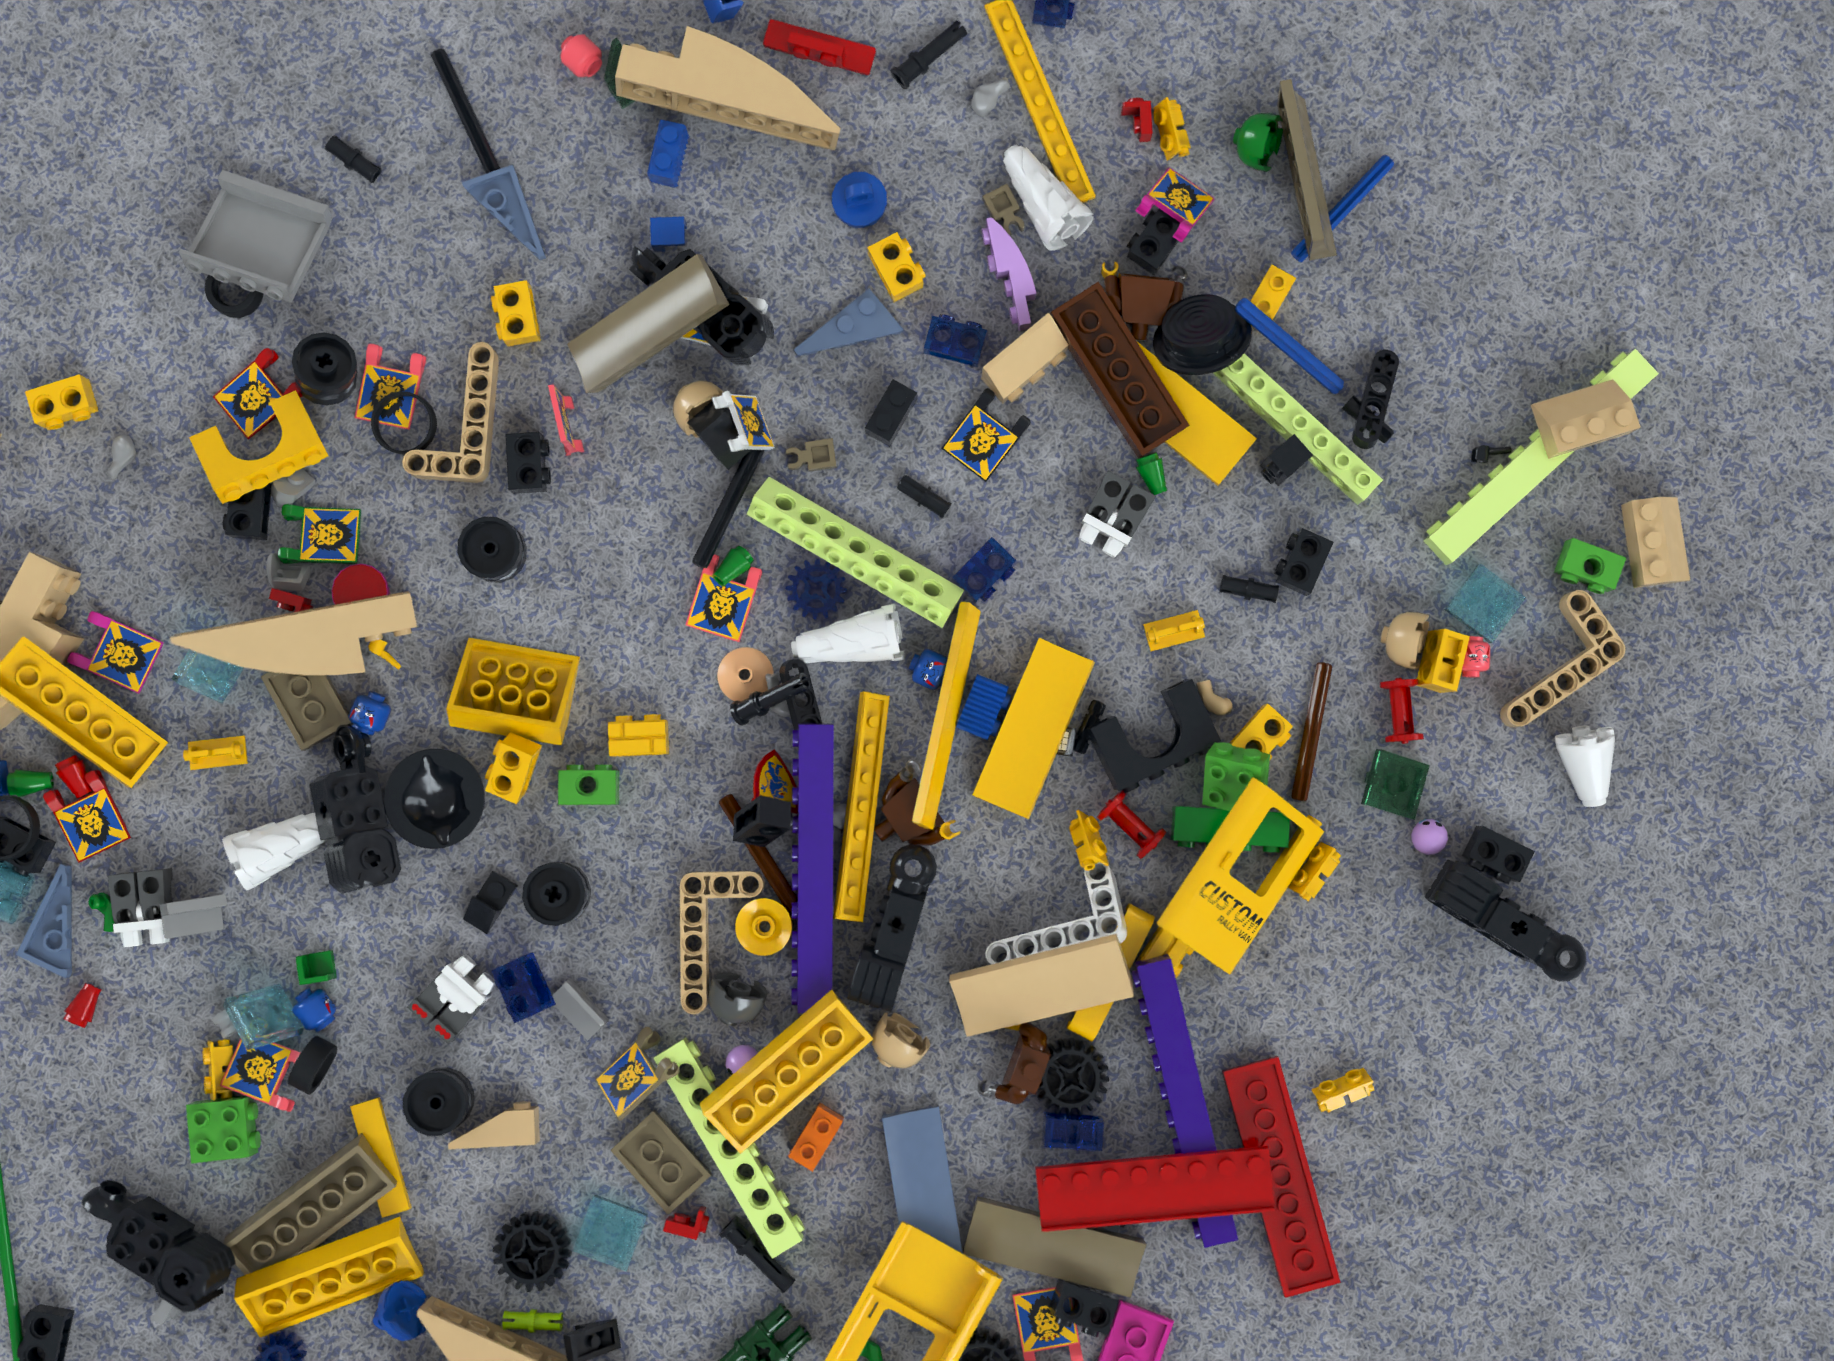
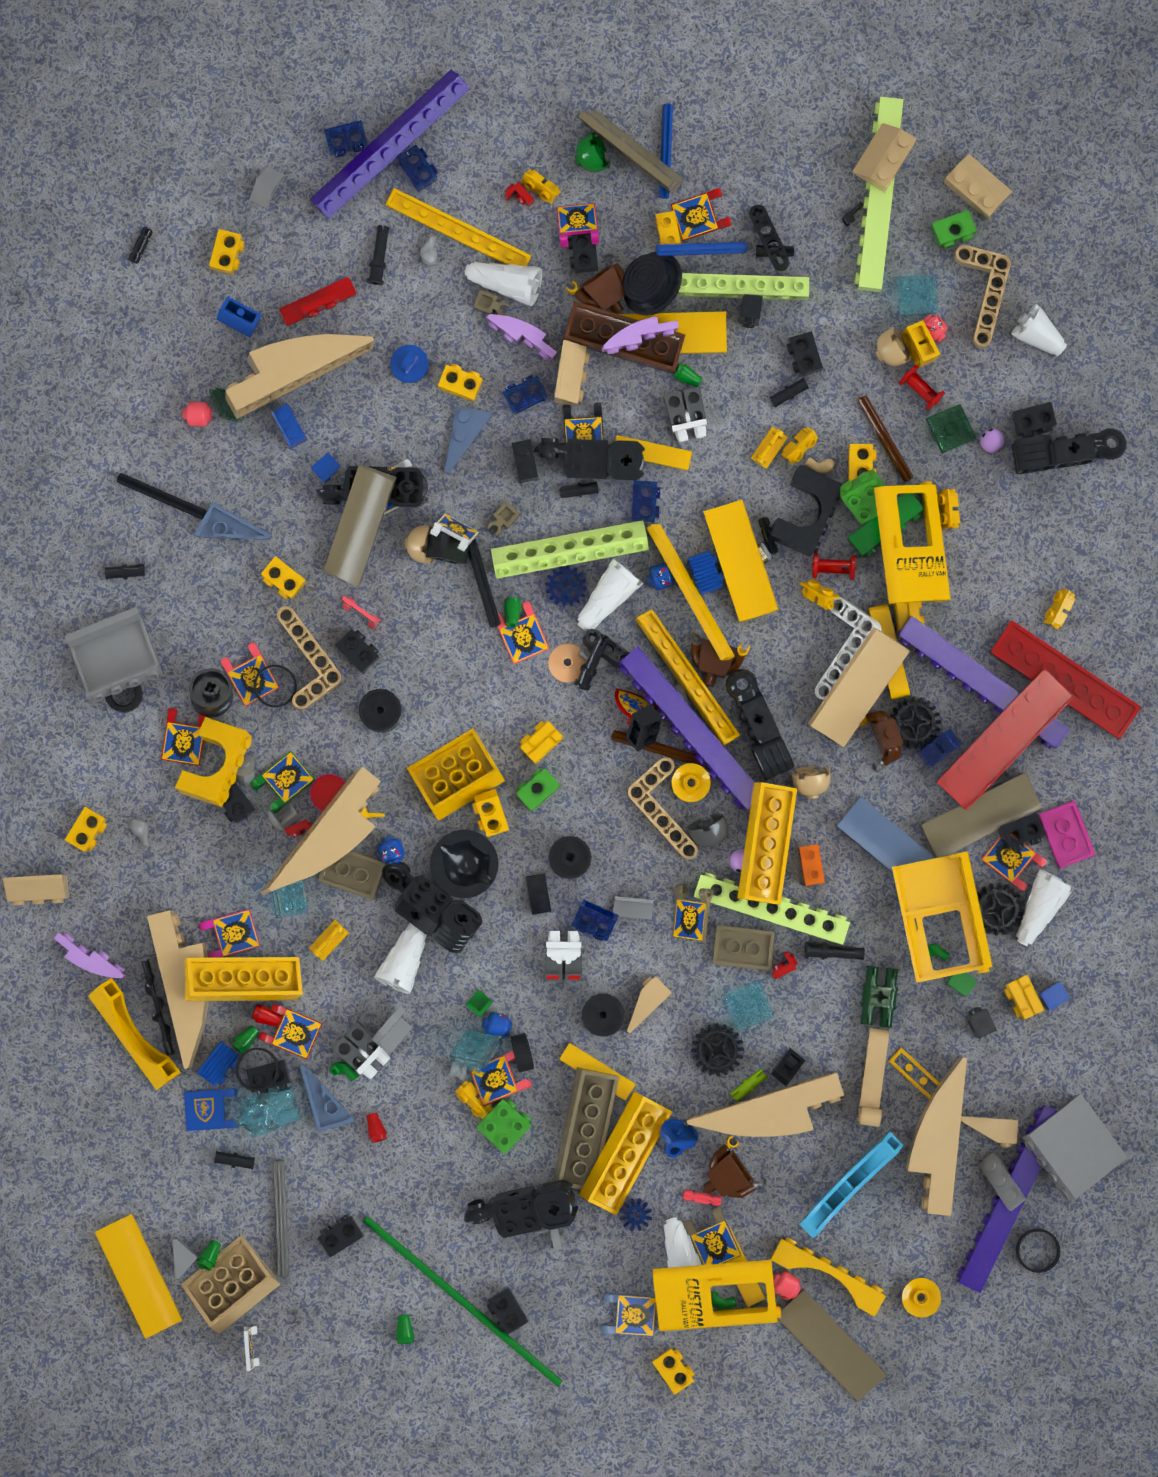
camera: 35 degrees left, 0 degrees up
(972, 476) = (595, 458): none -> black brick
(1039, 525) = (662, 454): none -> yellow tile
(1128, 372) = (631, 335): none -> lavender slope
(1223, 657) = (794, 452): none -> yellow hinge
(1315, 307) = (697, 216): none -> flag

